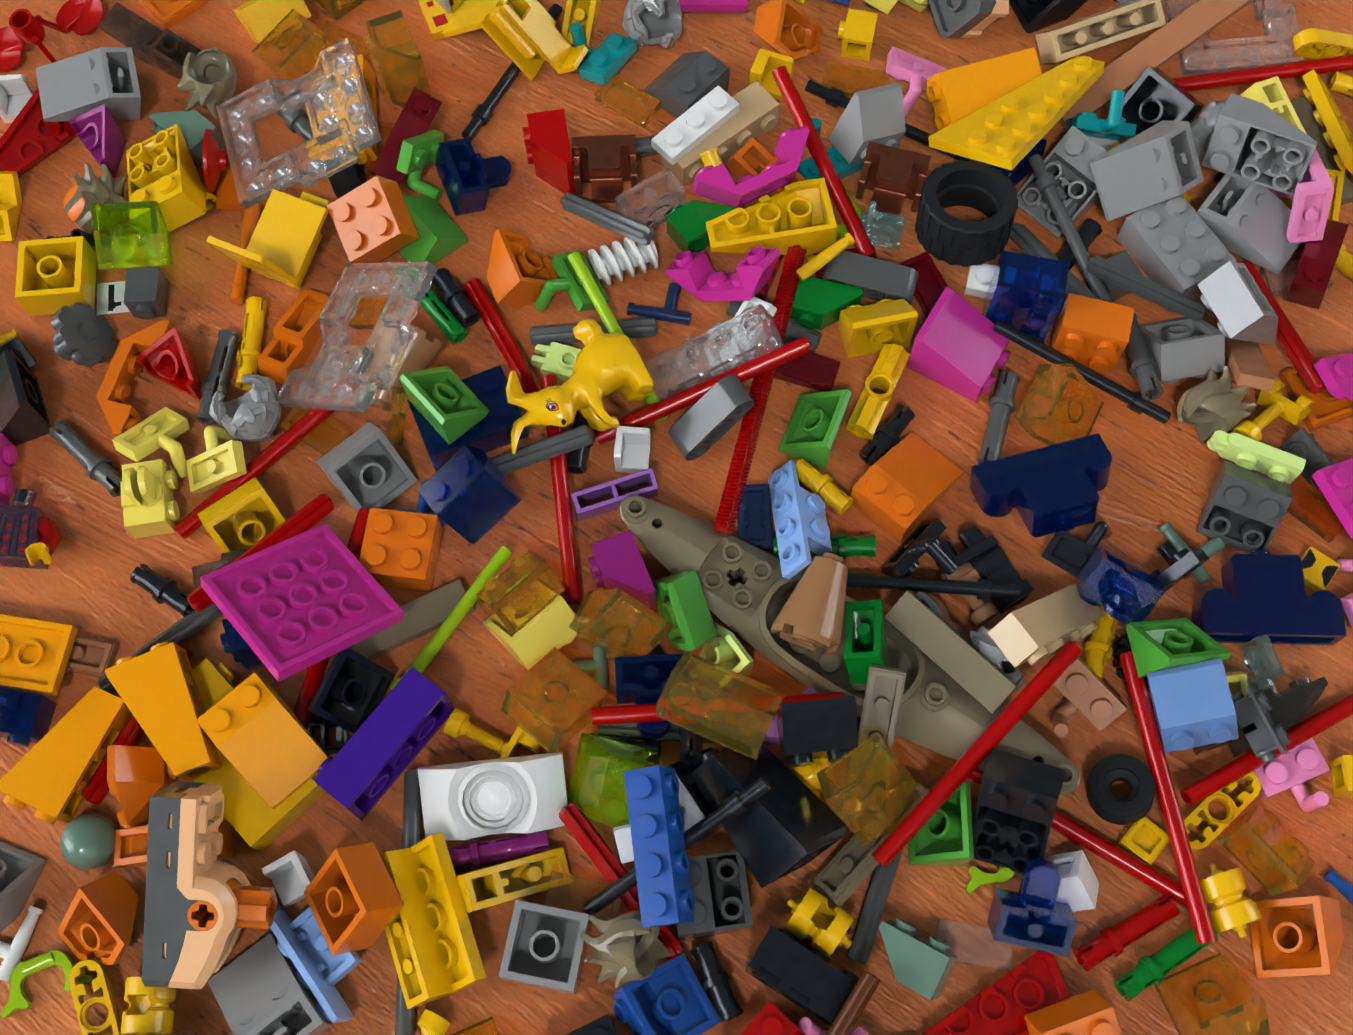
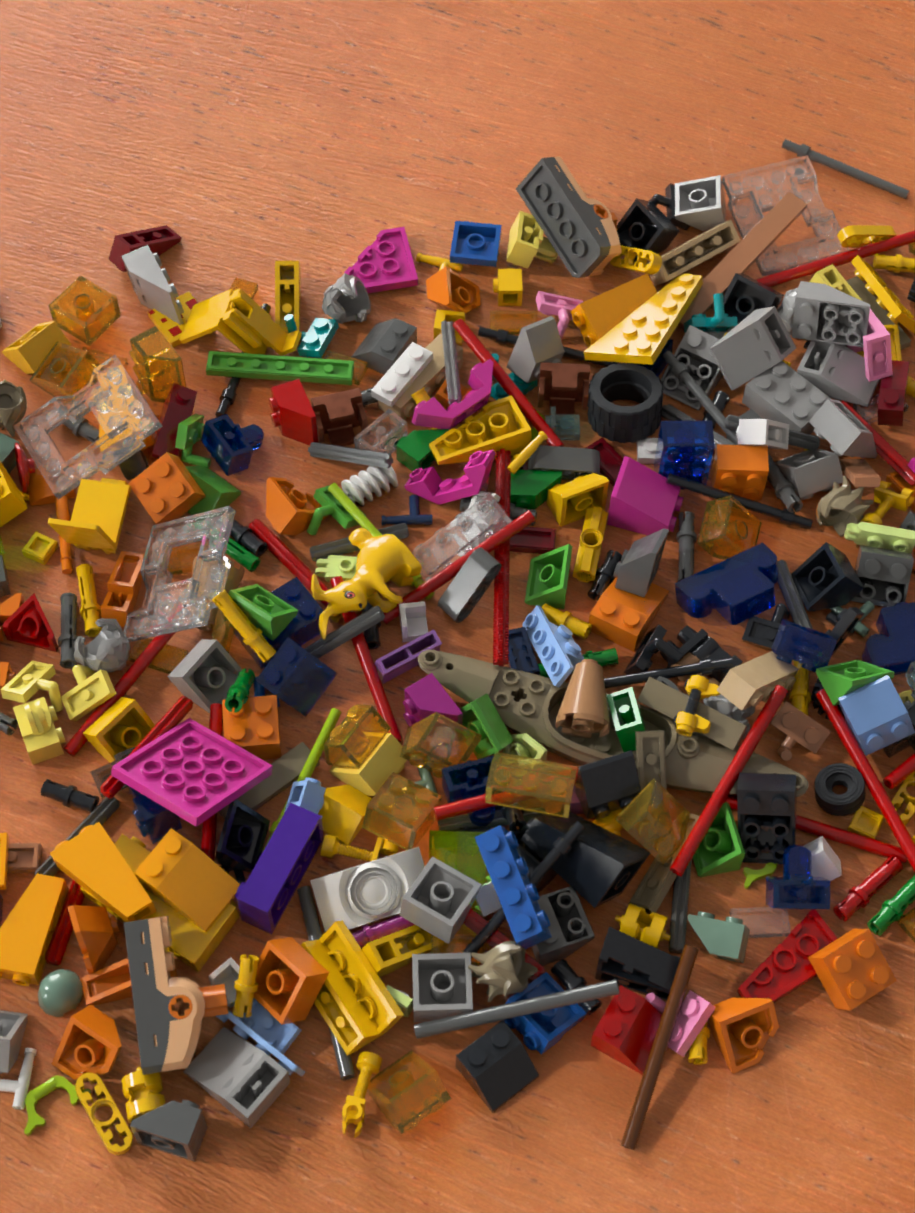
camera: 15 degrees left, 10 degrees down
(213, 265) = (40, 548): none -> yellow tile
(300, 895) = (246, 985): none -> yellow pin
(388, 505) = (239, 691): none -> green pin
(416, 425) = (244, 626): none -> yellow pin
(440, 659) = (307, 795): none -> light blue brick
(483, 678) = (343, 812): none -> yellow slope
(490, 949) = (402, 999): none -> yellowish green tile
(552, 89) = (280, 368): none -> bright green tile
(568, 833) = (439, 900): none -> light grey slope
(630, 1006) = (516, 1009): none -> dark grey piece
(759, 121) = (451, 362): none -> light grey axle
(934, 431) = (641, 563): none -> dark grey slope
(941, 663) = (688, 721): none -> yellow piece
(1028, 35) = (640, 265): none -> yellow beam
(1120, 514) = (791, 595): none -> dark grey axle
(1133, 289) = (763, 433): none -> white slope
(1170, 499) = (826, 579): none -> black slope

